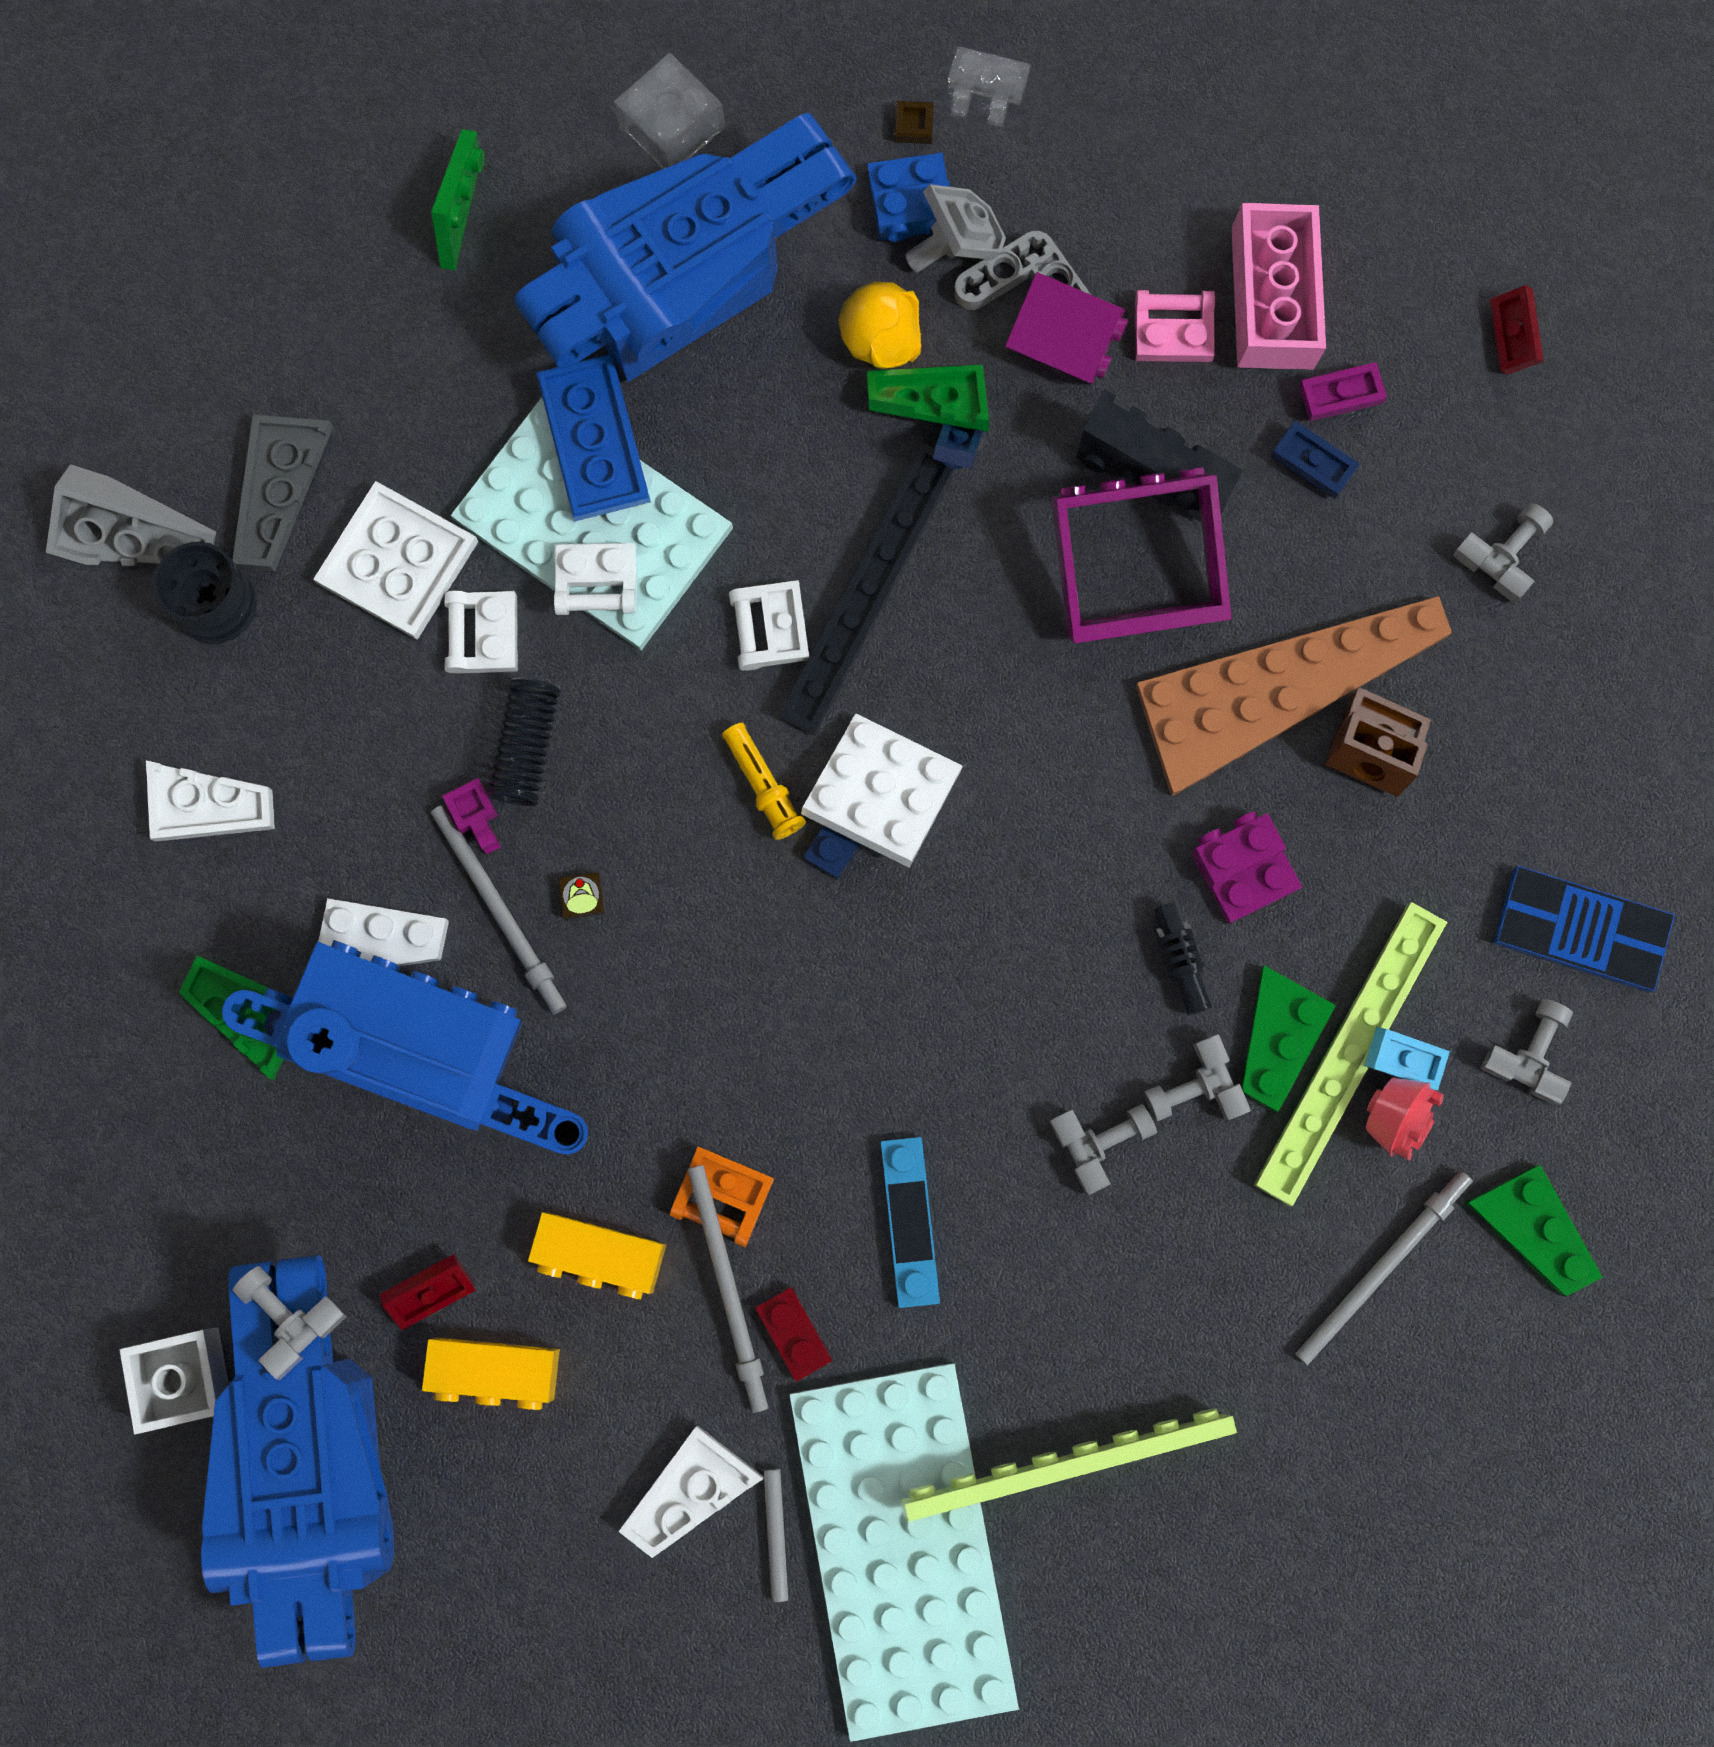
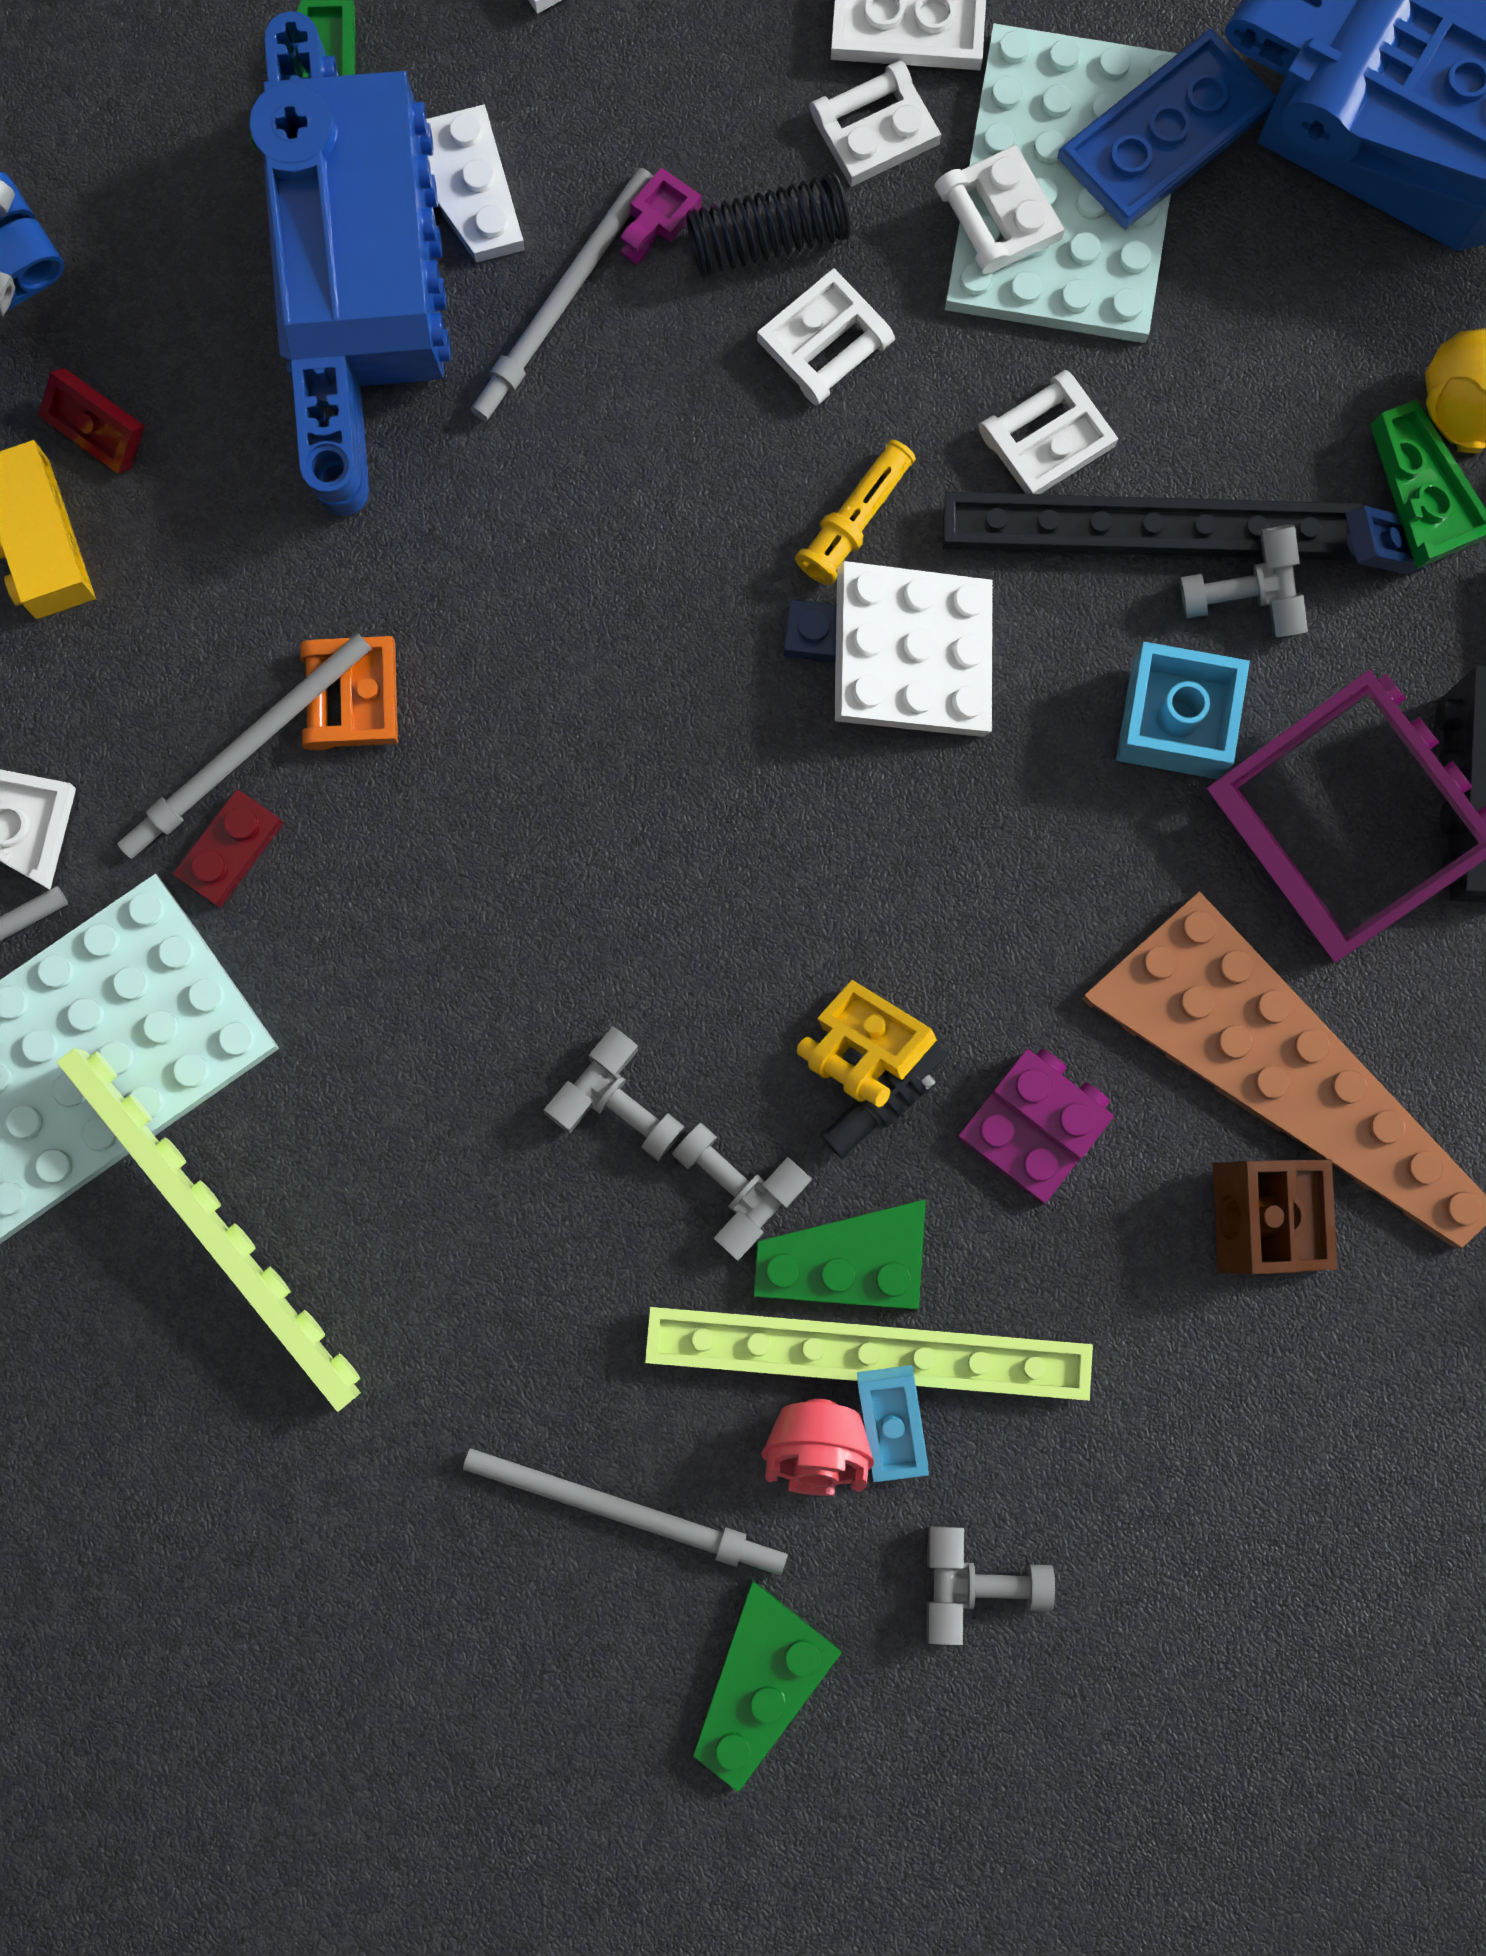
camera: 60 degrees right, 0 degrees up
(581, 895) = (623, 377): tile -> none
(596, 1255) = (216, 583): yellow brick -> none
(610, 743) = (814, 324): none -> white plate
(910, 1222) = (418, 921): plate -> none
(950, 531) = (1271, 583): none -> light grey bar
(1012, 632) = (1183, 710): none -> medium azure brick
(1136, 943) = (874, 1029): none -> yellow plate
(1584, 929) = (1168, 1582): black tile -> none

